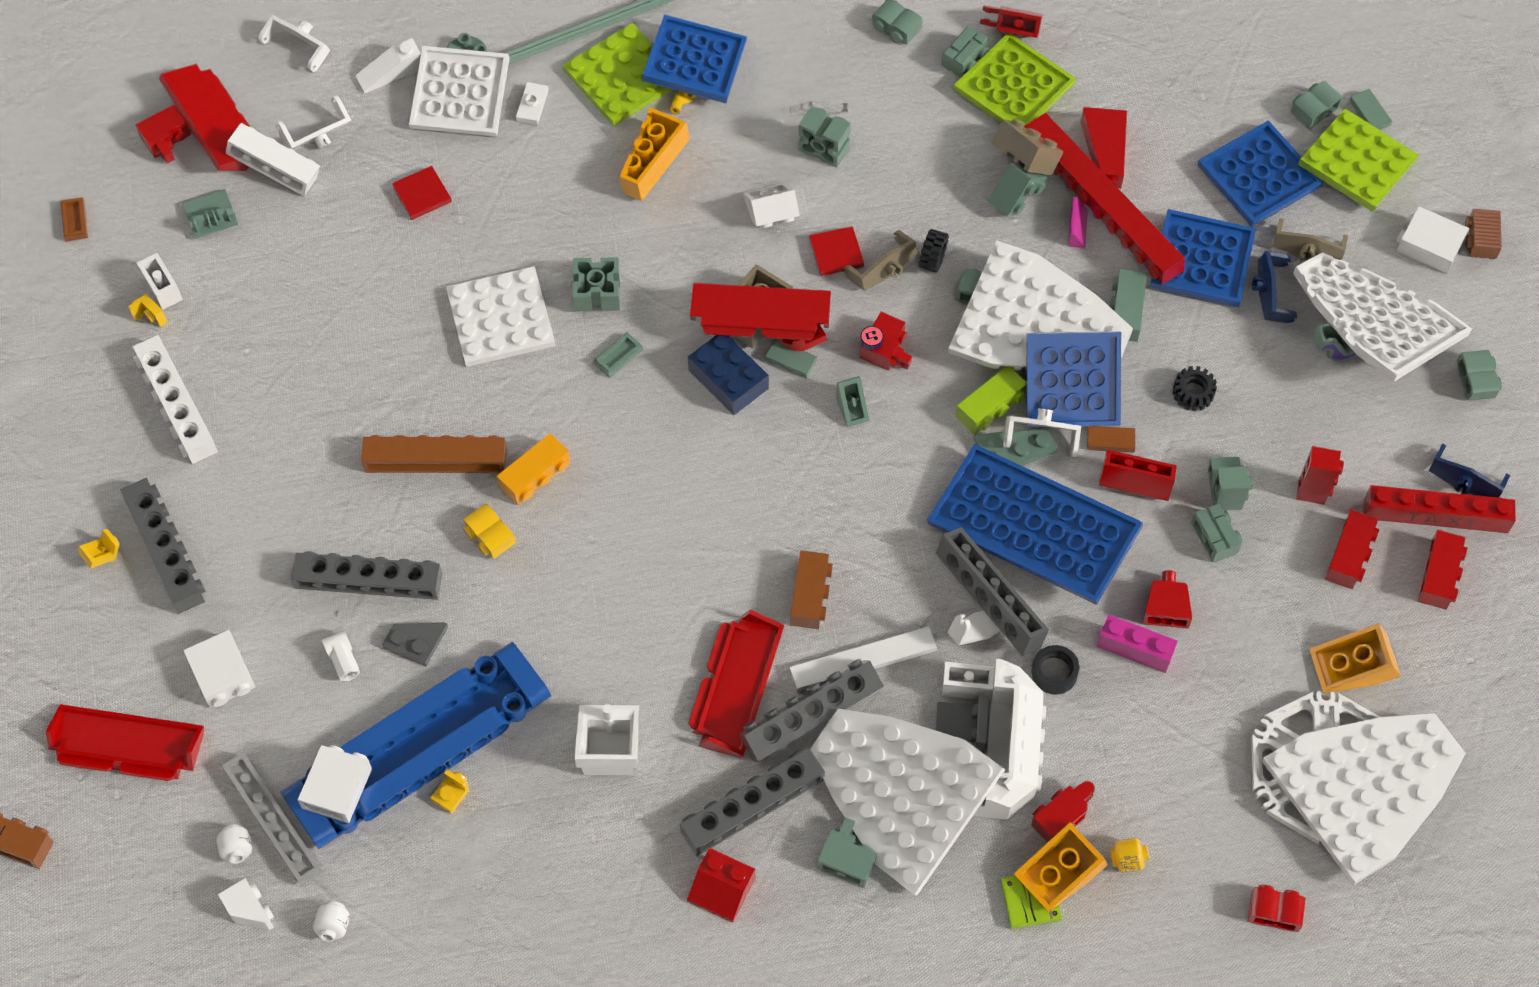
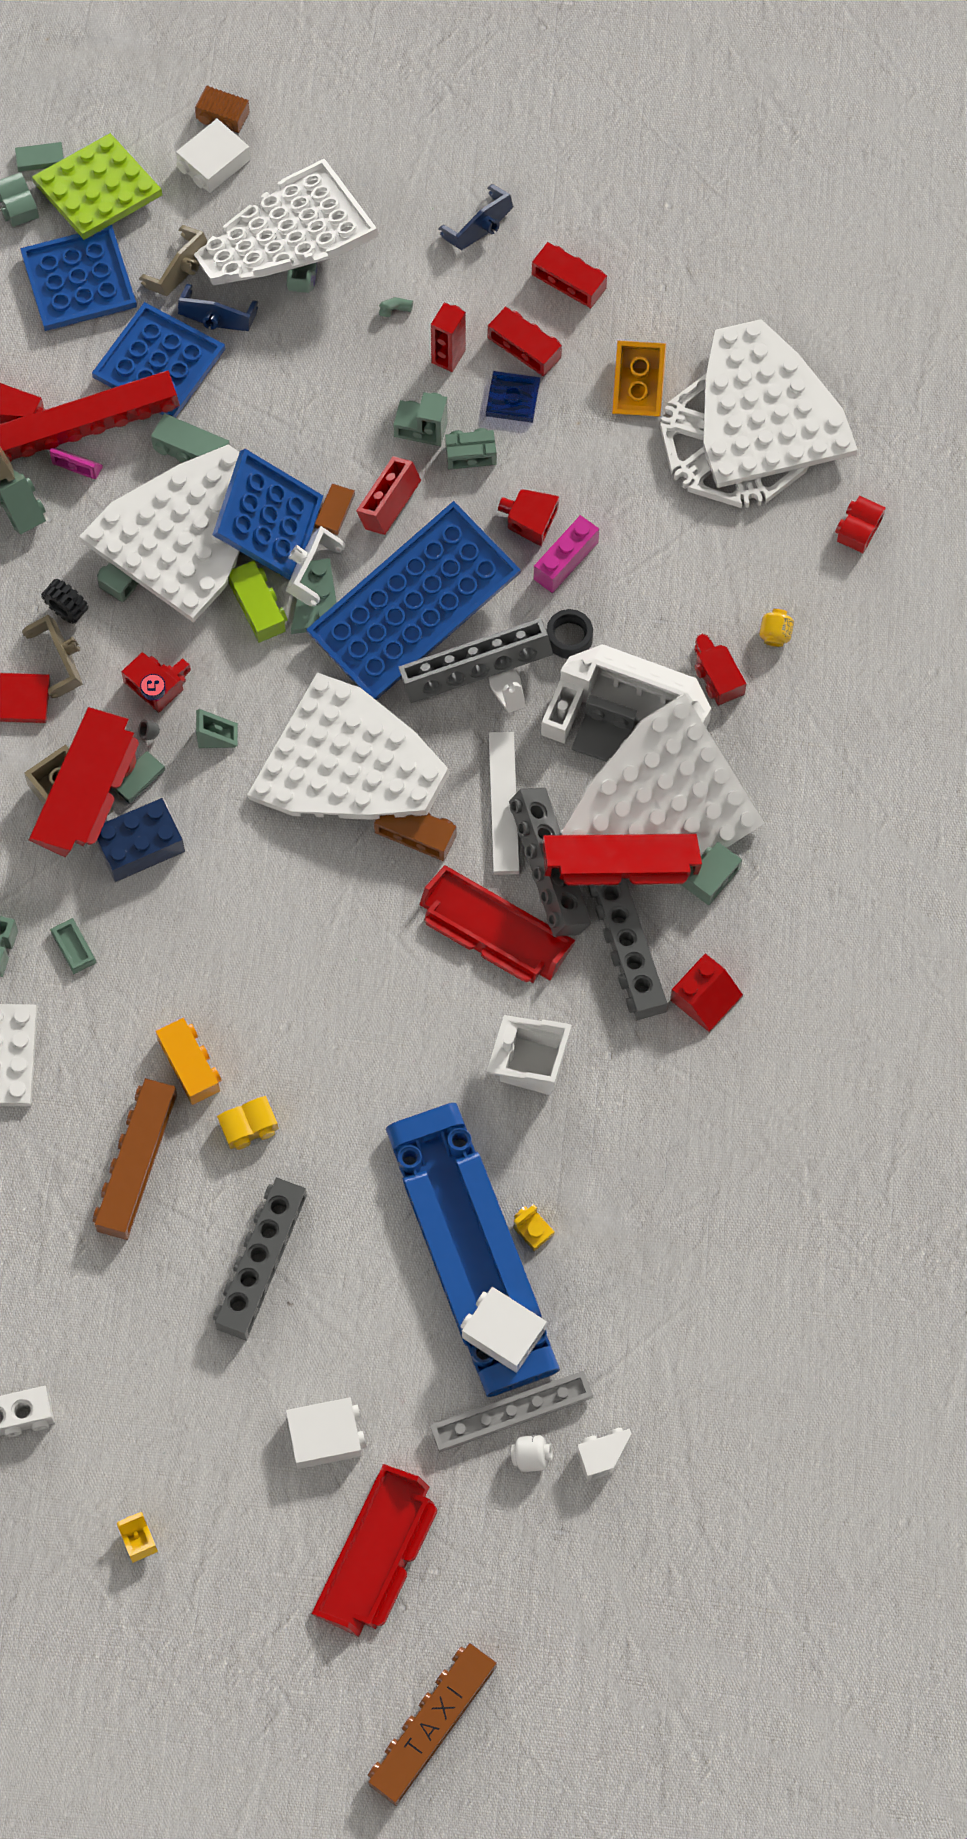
camera: 75 degrees left, 5 degrees up
(182, 596) = (167, 1474): dark grey brick -> none
(331, 921) = (643, 1371): white head -> none
(339, 650) = (339, 1305): white piece -> none
(415, 640) = (350, 1227): dark grey wing -> none
(828, 774) = (609, 858): none -> red slope
(837, 352) = (148, 730): none -> dark grey hinge
(858, 515) = (348, 759): none -> white wing
(1023, 907) = (793, 726): lime tile -> none
(1061, 867) = (775, 687): light orange slope -> none
(1194, 376) = (305, 405): black tyre -> none
(1290, 557) = (513, 396): none -> clear blue tile
(1346, 430) = (395, 303): none -> sand green arm
(1440, 509) = (507, 254): red brick -> none
(1478, 375) = (376, 171): sand green brick -> none

